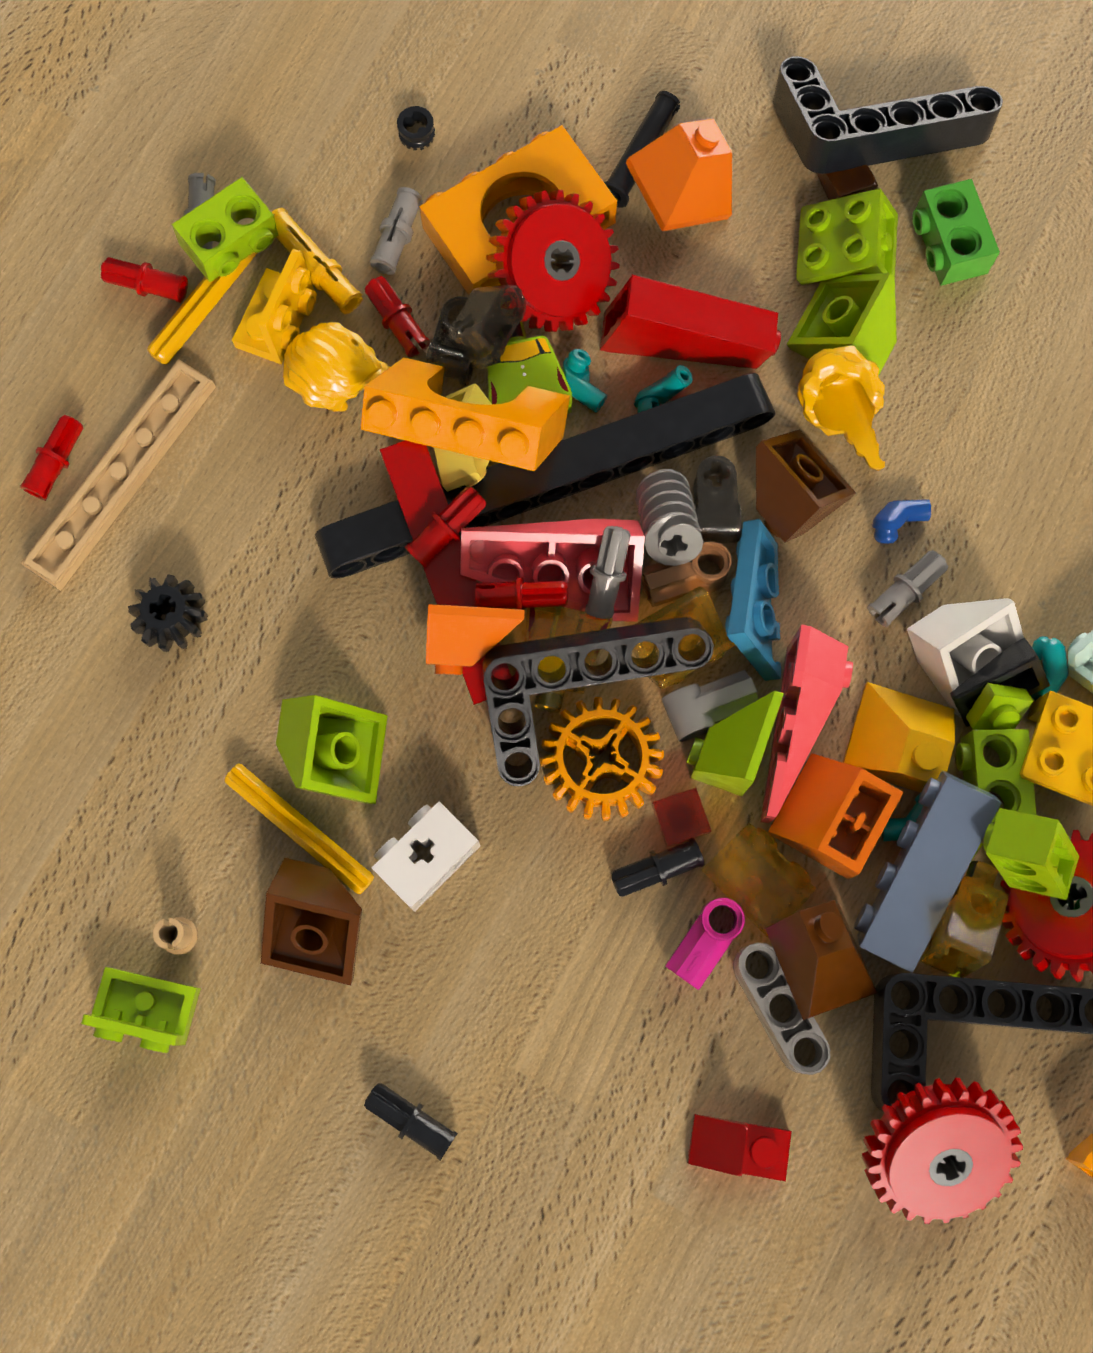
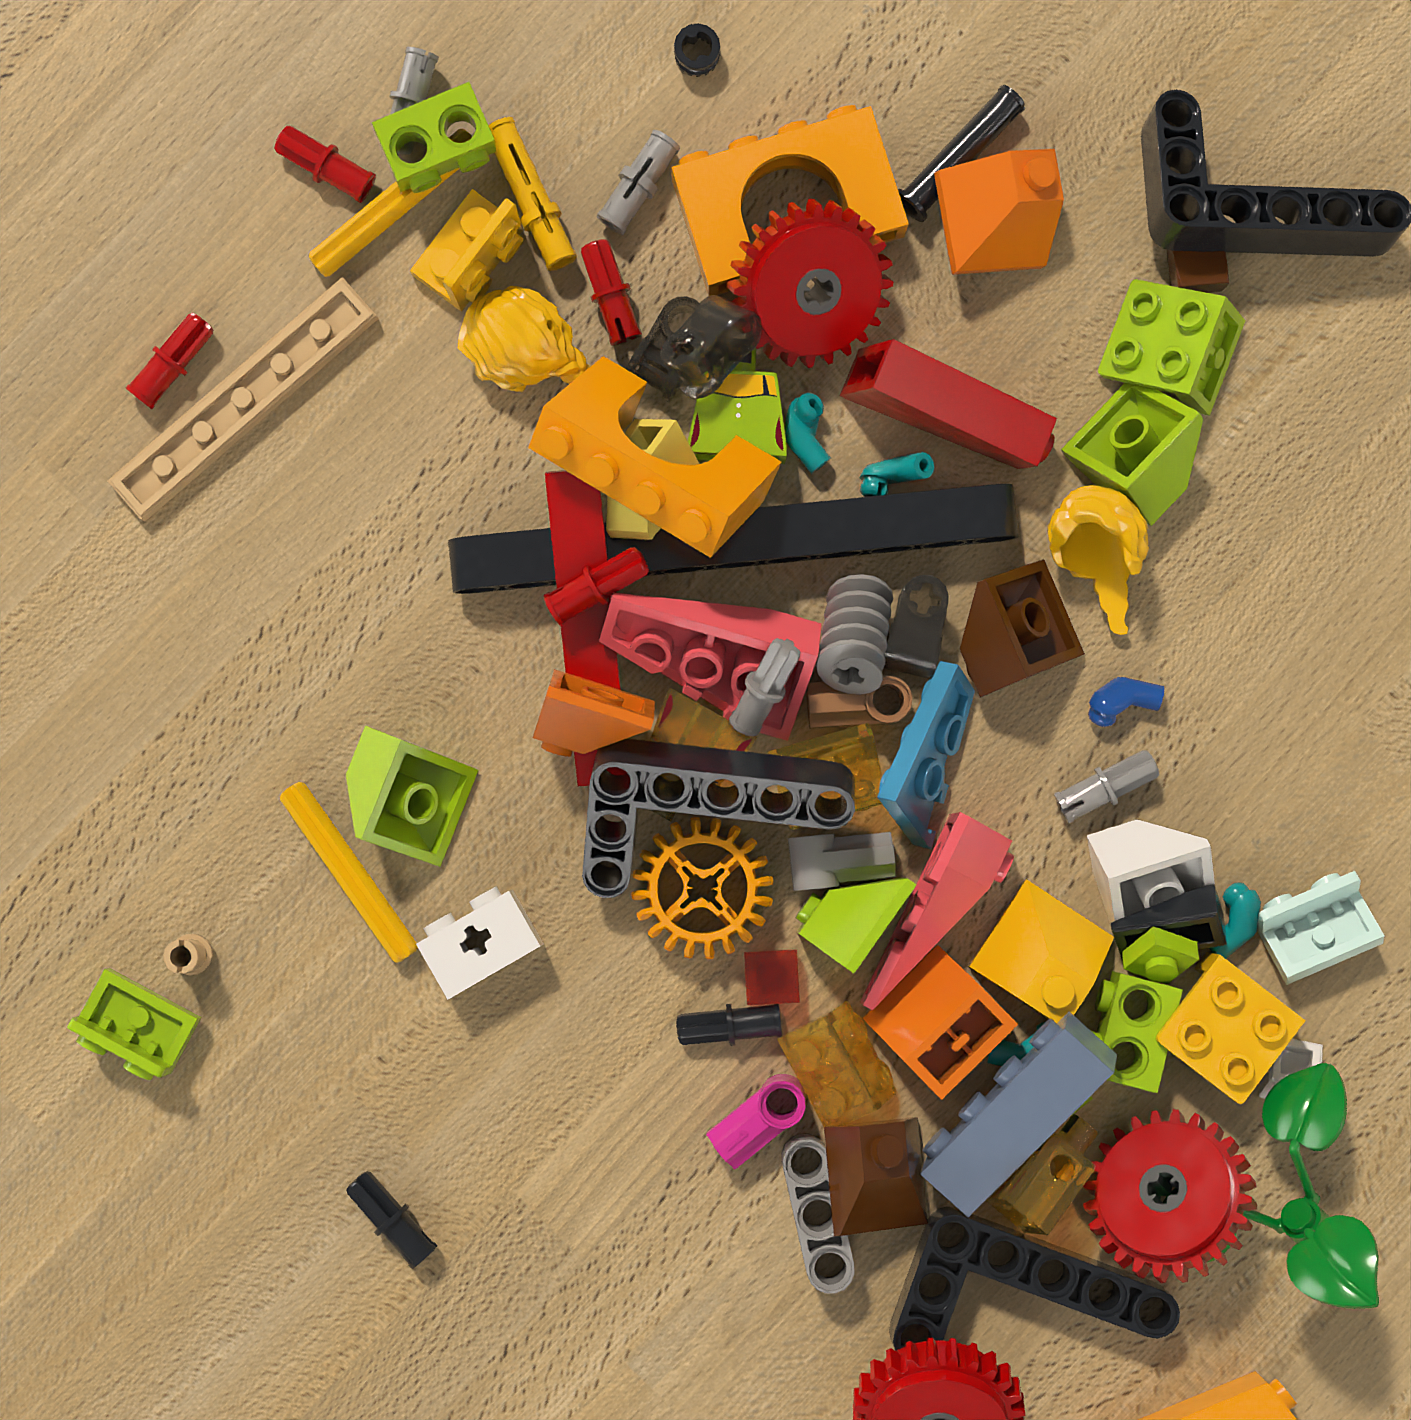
camera: 15 degrees right, 10 degrees up
(158, 602) = (255, 570): black gear -> none
(310, 923) = (337, 982): reddish brown slope -> none
(521, 595) = (660, 685): red axle -> none
(739, 1147) = (731, 1342): red slope -> none
(964, 230) = (1317, 369): bright green brick -> none
(1031, 853) = (1131, 1133): lime brick -> none

